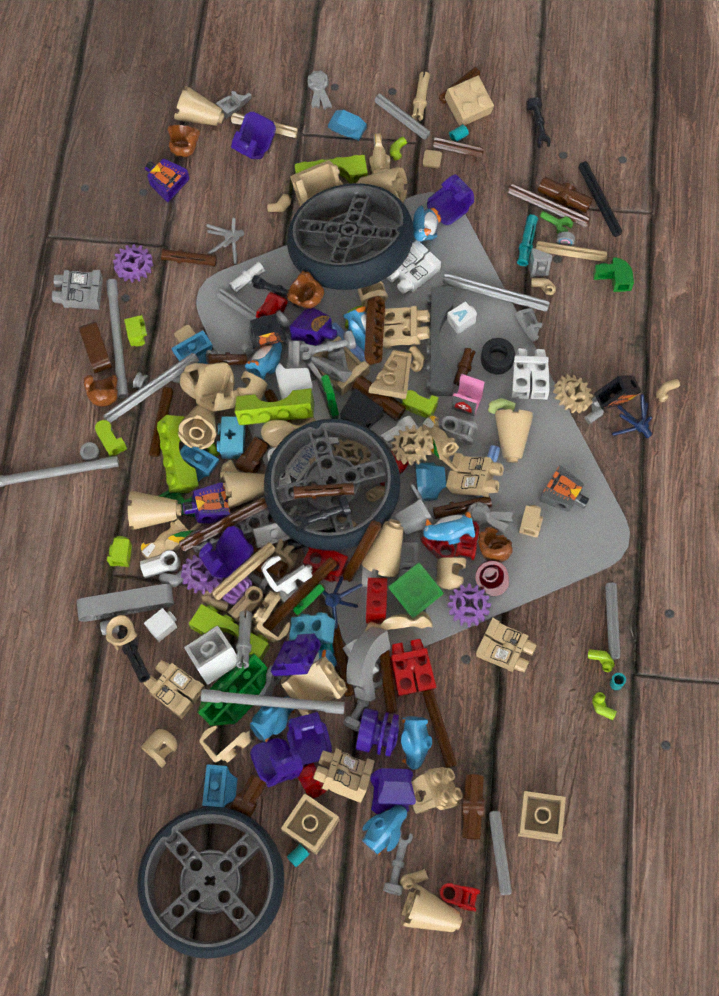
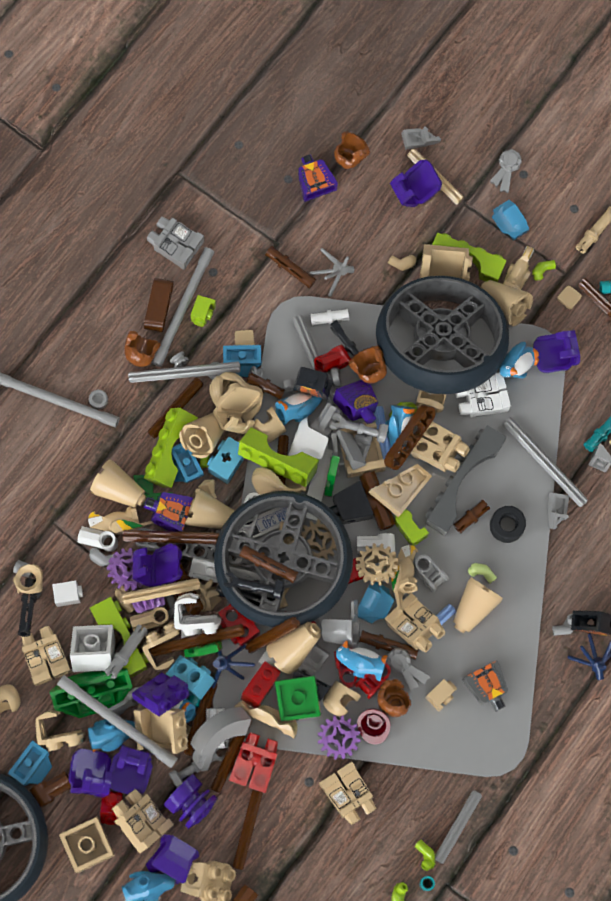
camera: 25 degrees right, 5 degrees up
(106, 435) = (120, 394): lime leg -> none
(120, 552) = (70, 507): lime brick -> none
(125, 602) = (48, 555): light grey beam -> none
(133, 263) = (230, 241): medium lavender gear -> none
(197, 109) = (382, 127): tan cone -> none
(250, 460) = (231, 490): reddish brown piece -> none
(298, 855) = (61, 864): teal hinge -> none
(375, 493) = (319, 586): tan arm -> none
(402, 116) = (567, 240): light grey axle -> none
(415, 741) = (219, 828): dark azure animal -> none
(419, 359) = (435, 485): tan arm -> none
(462, 317) = (498, 468): white brick -> none
(470, 388) = (463, 540): bright pink piece -> none
(531, 368) = (531, 554): white hips -> none
(545, 284) = (596, 480): tan arm -> none
(573, 393) = (554, 597): tan gear -> none

